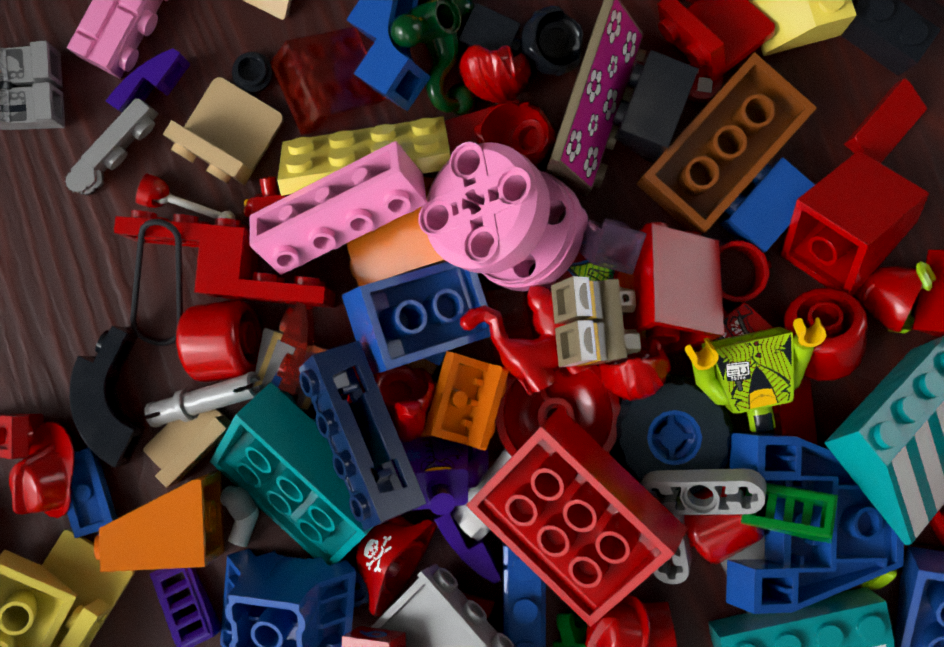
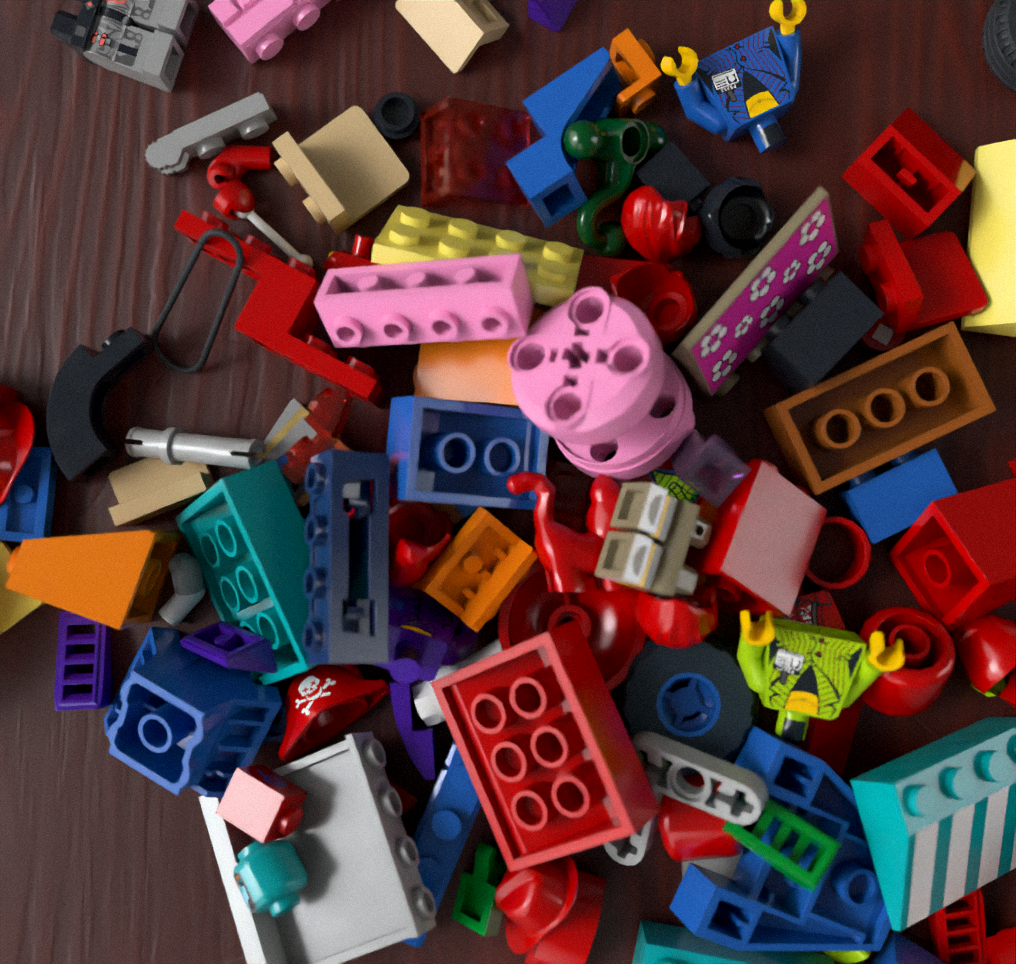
camera: 25 degrees right, 0 degrees up
(140, 159) = (236, 161): none -> red arm
(158, 72) = (296, 74): dark purple slope -> none
(218, 340) = (238, 391): red head -> none
(299, 543) = (232, 647): none -> dark purple slope

